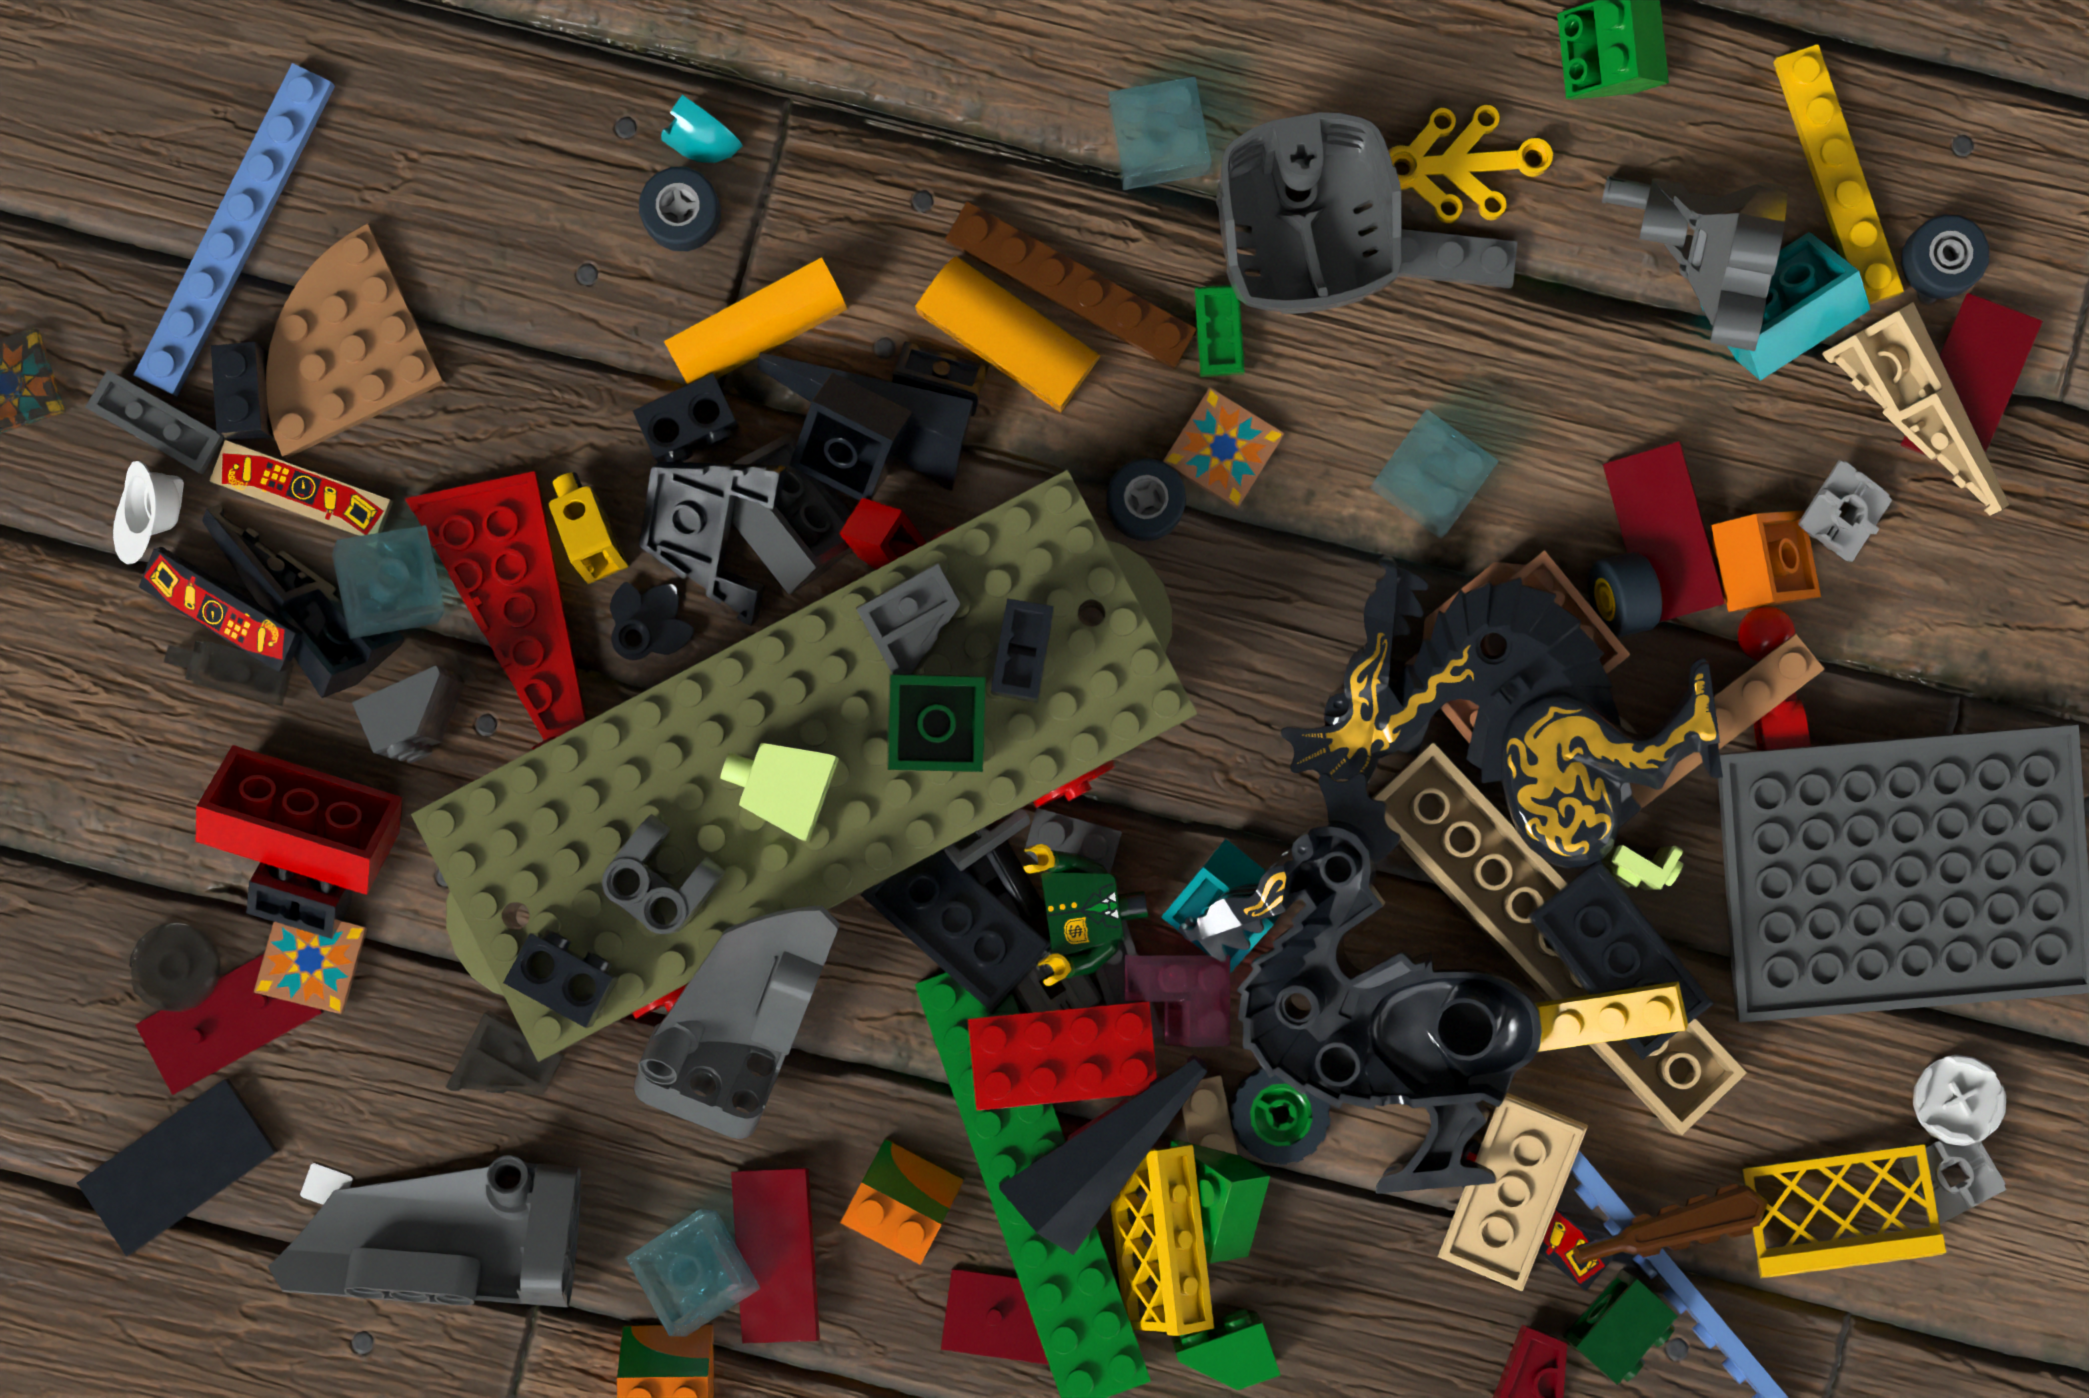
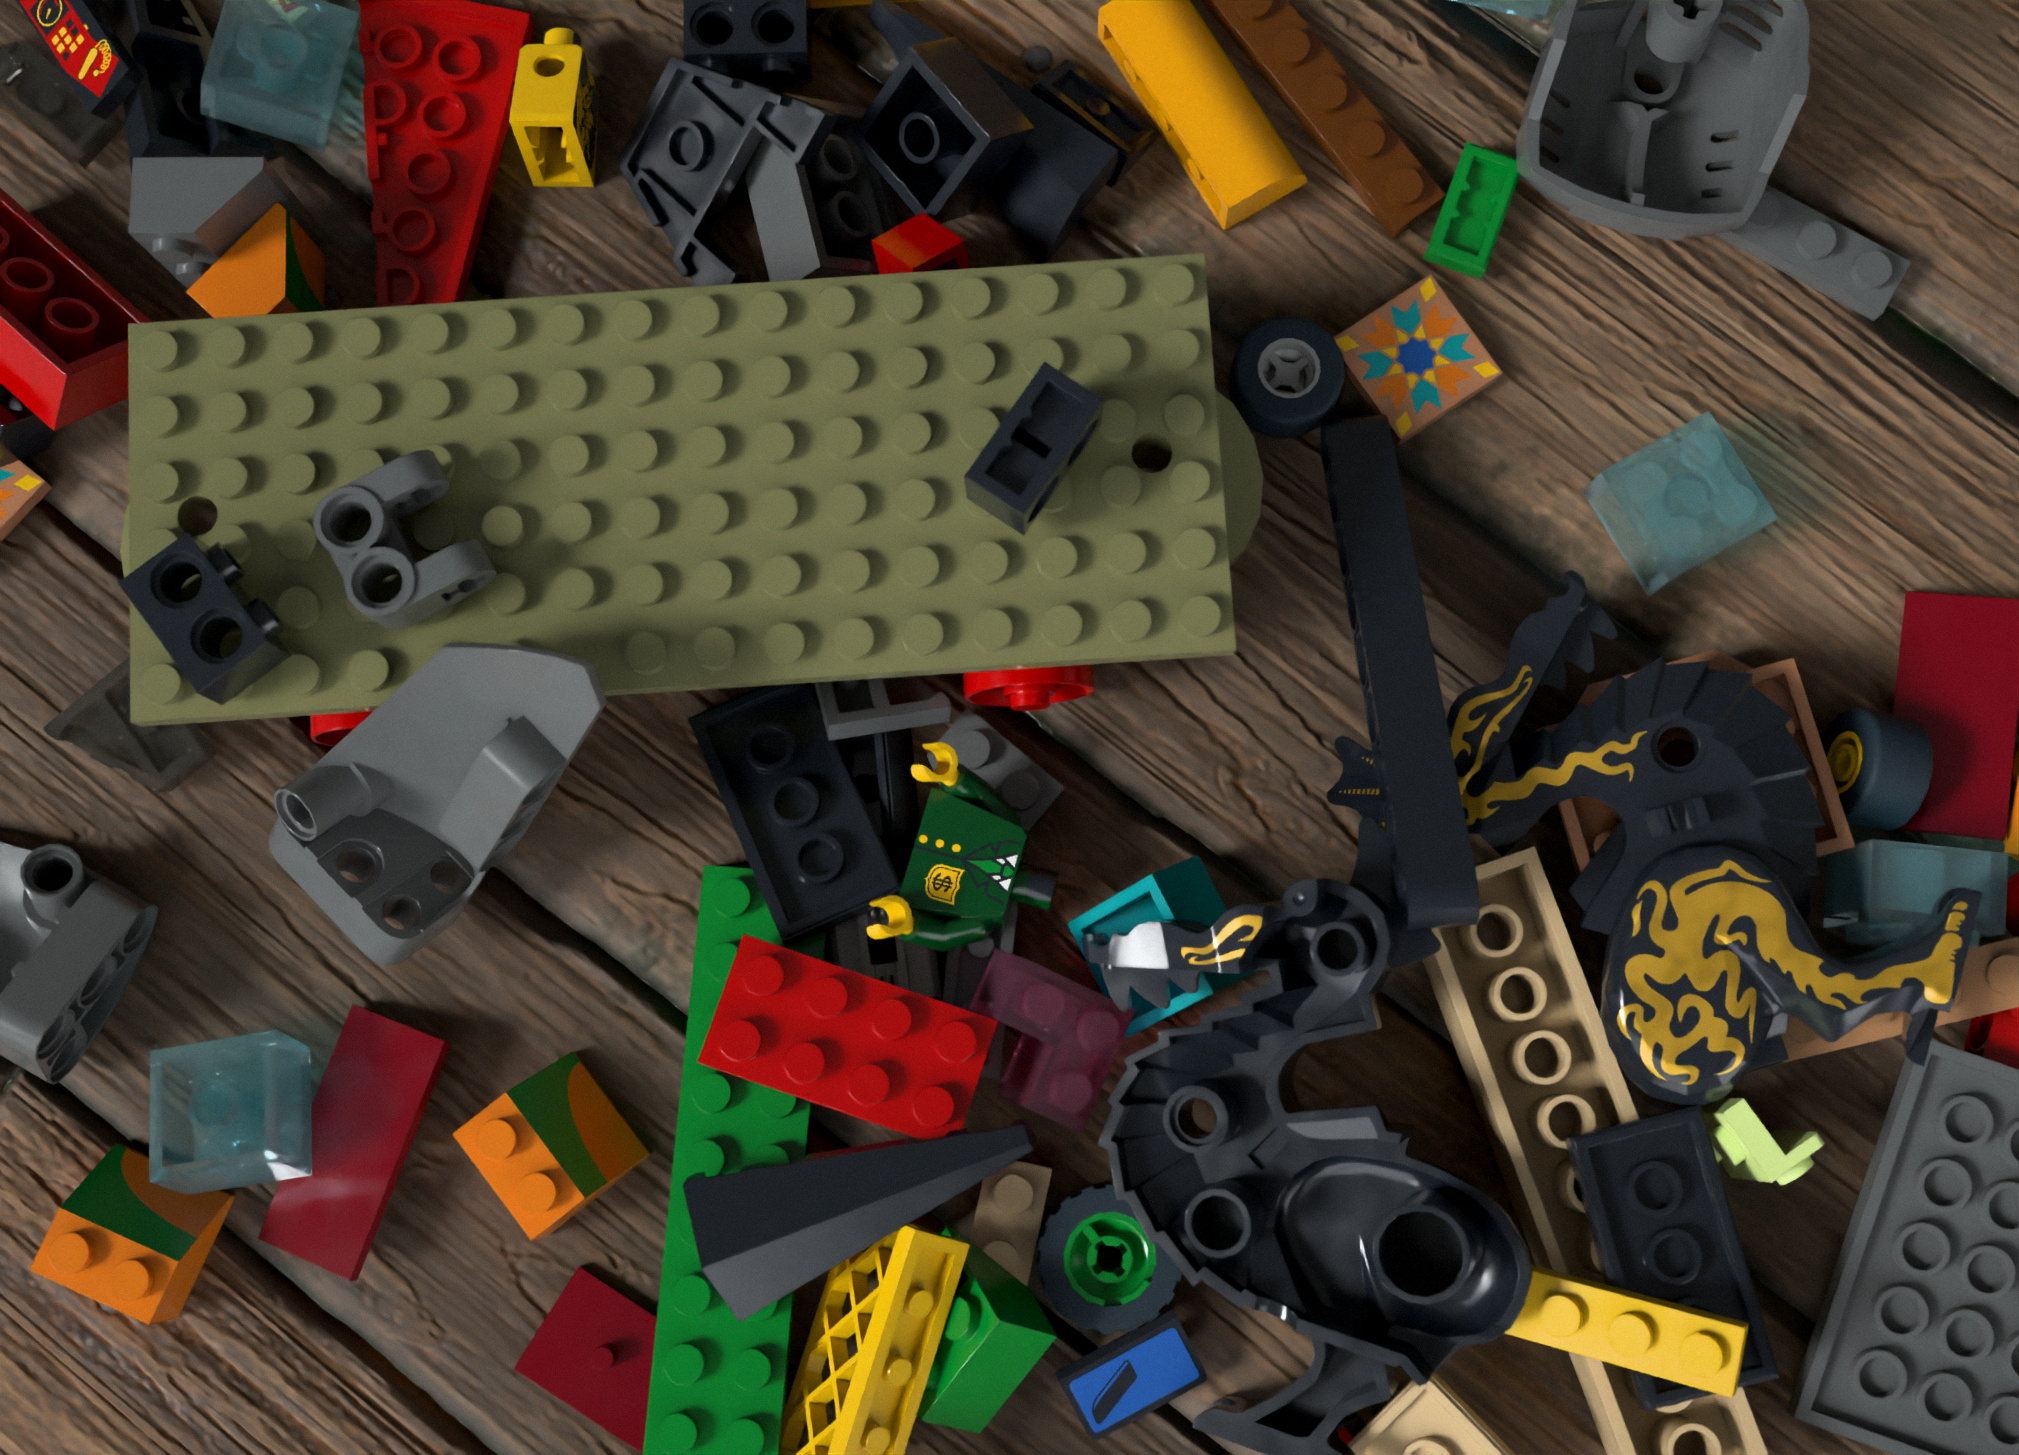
camera: 25 degrees right, 5 degrees down
(458, 740) = (265, 272): none -> orange slope
(652, 616) = (591, 253): black plate -> none
(783, 785) = (629, 492): yellowish green torso -> none
(909, 617) = (901, 347): dark grey wing -> none
(935, 722) = (870, 490): dark green brick -> none
(1298, 669) = (1398, 677): none -> black beam
(1326, 1179) = (1132, 1375): none -> slope
(1457, 164) = (1872, 138): yellow plant -> none
(1662, 669) = (1891, 888): none -> clear light blue brick

